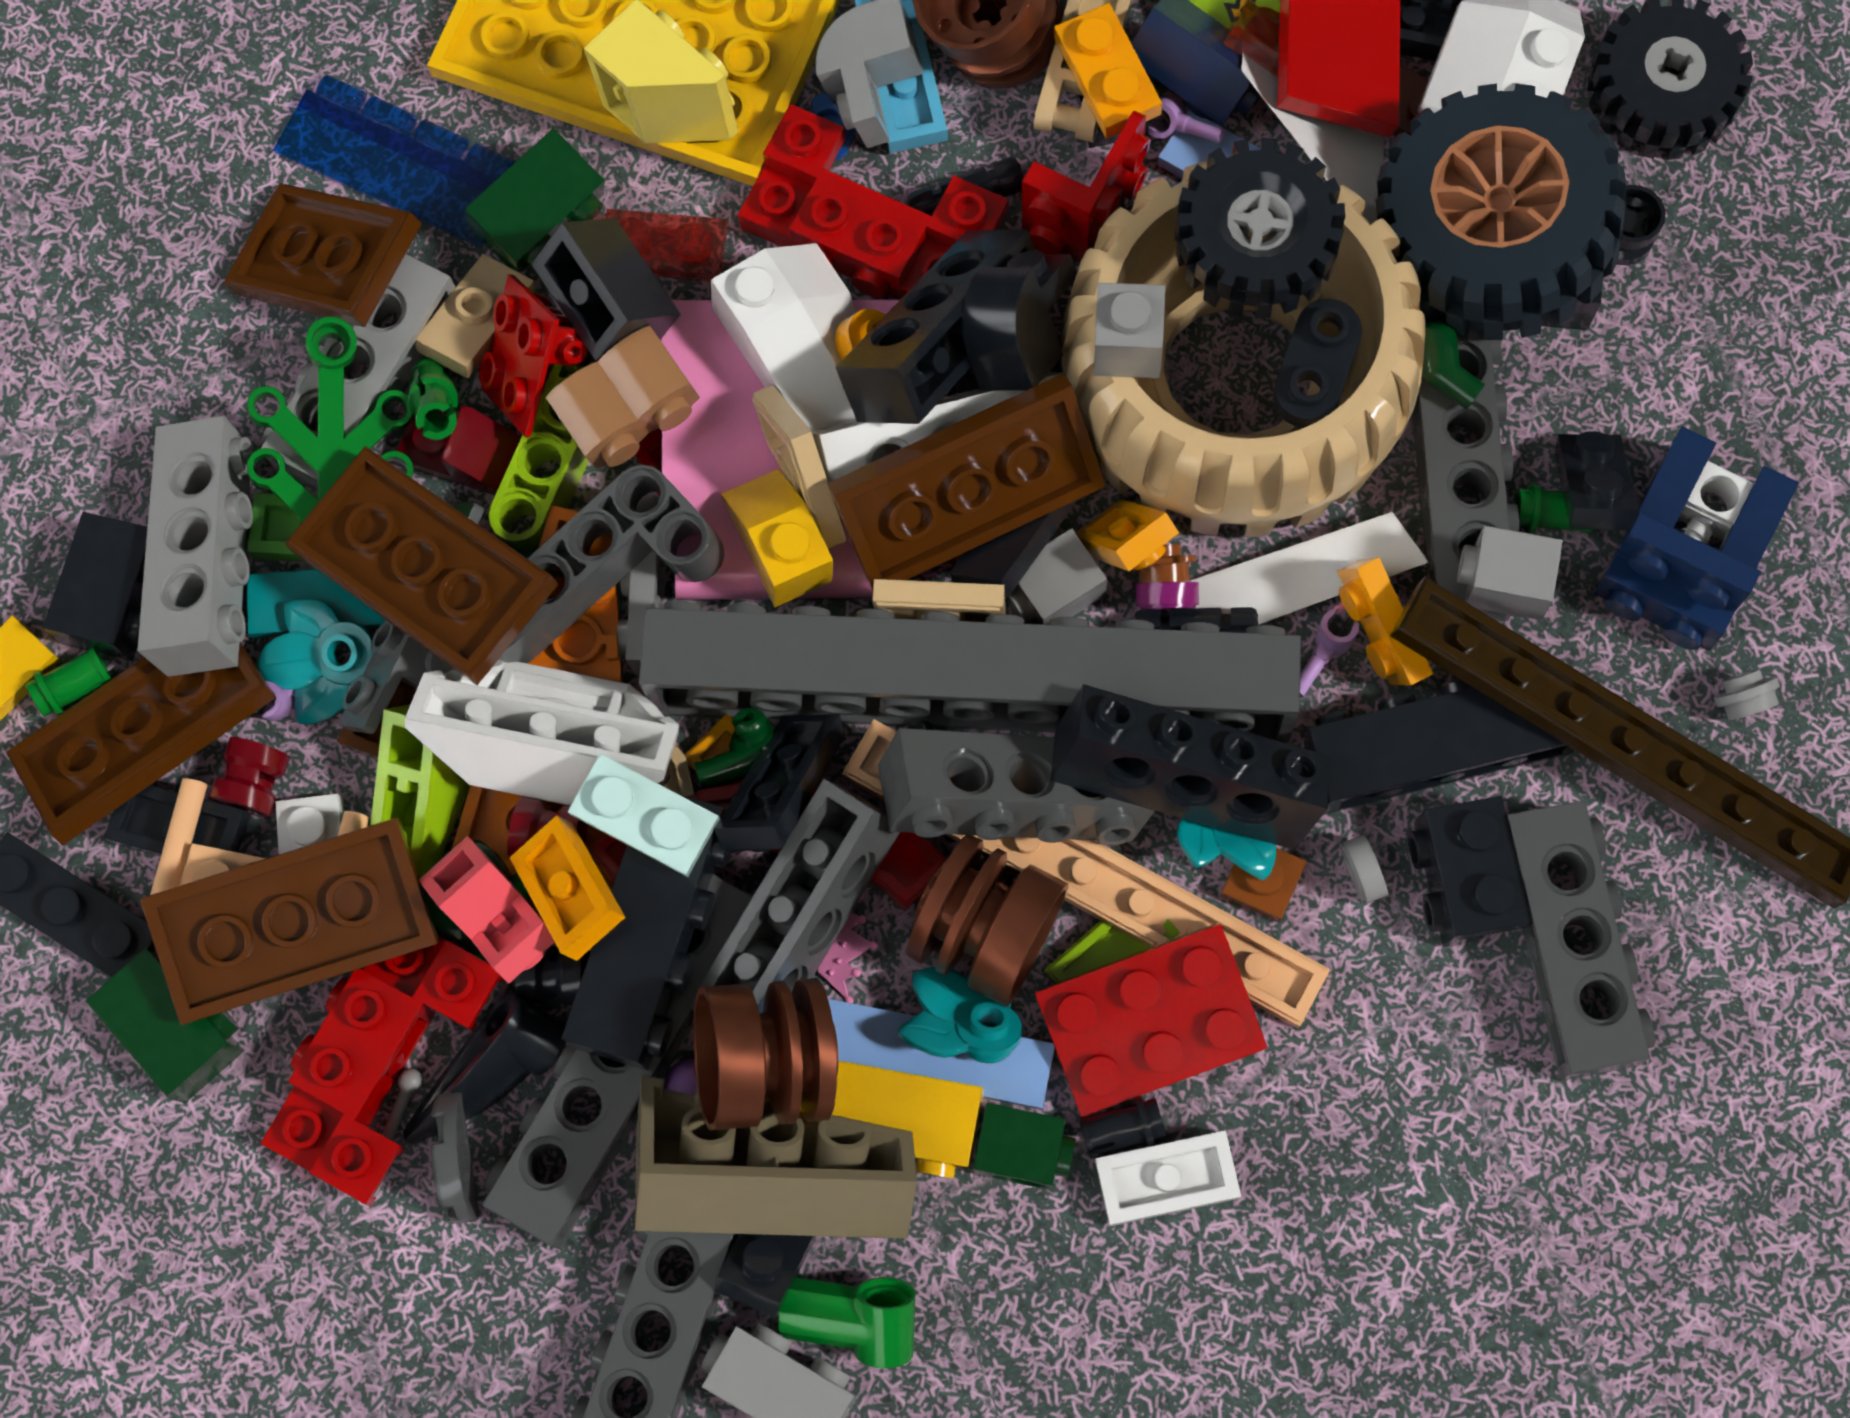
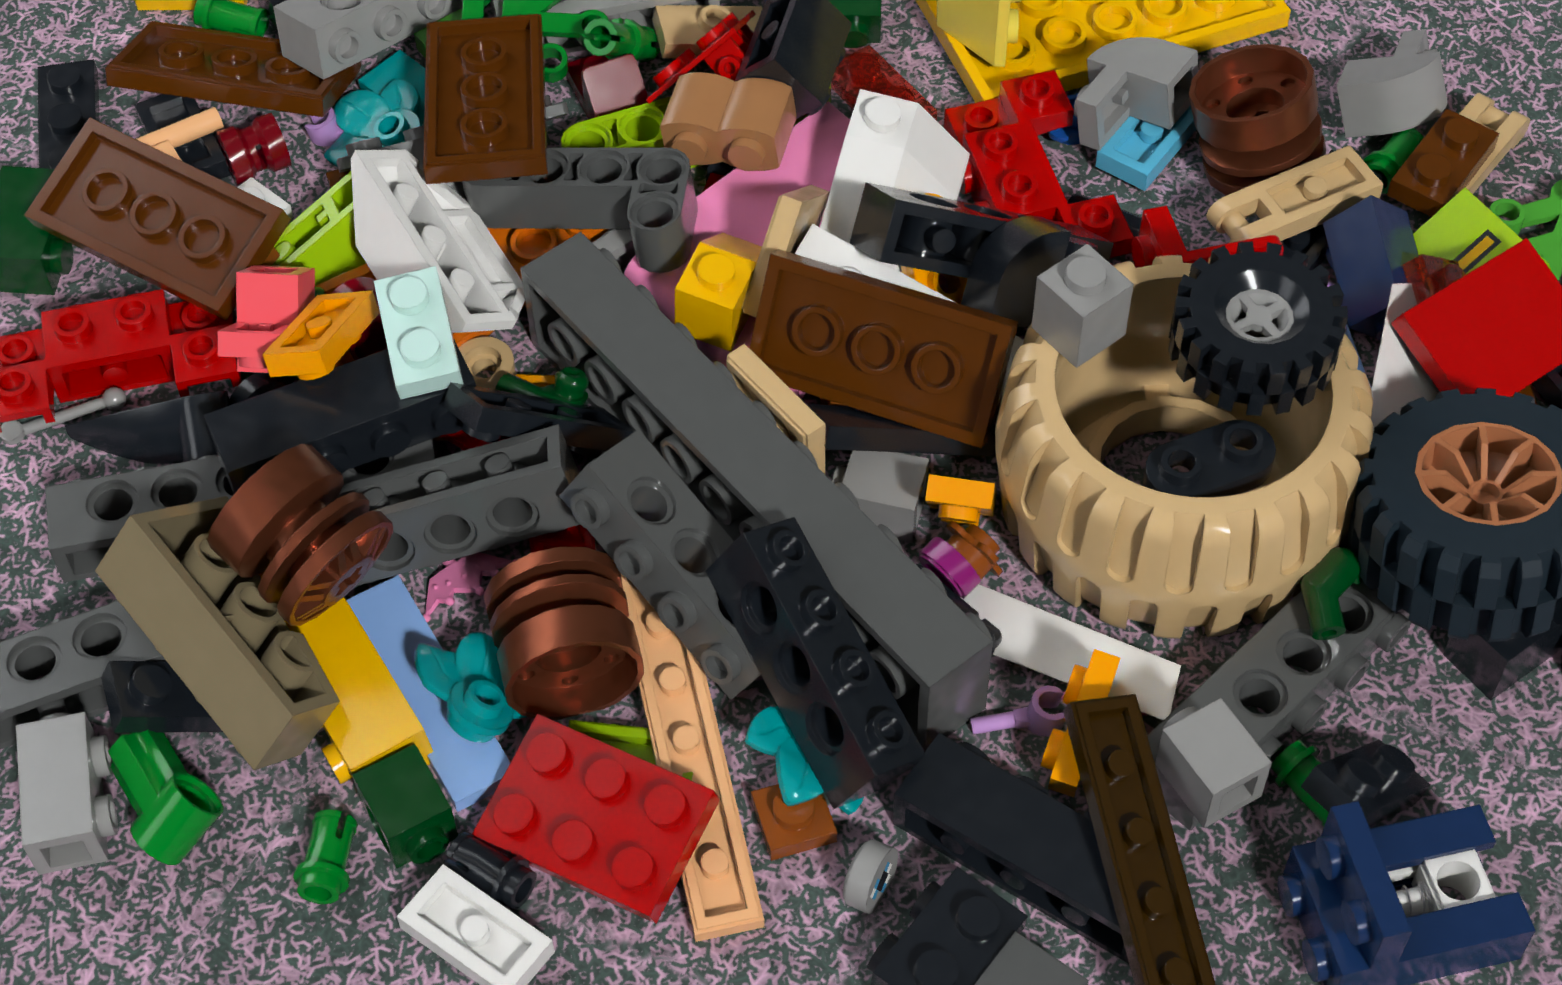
camera: 40 degrees right, 20 degrees down
(452, 1160) = (67, 449): dark grey tile -> none
(1007, 1236) = (326, 858): none -> green pin
(1107, 69) = (1298, 204): light orange plate -> none

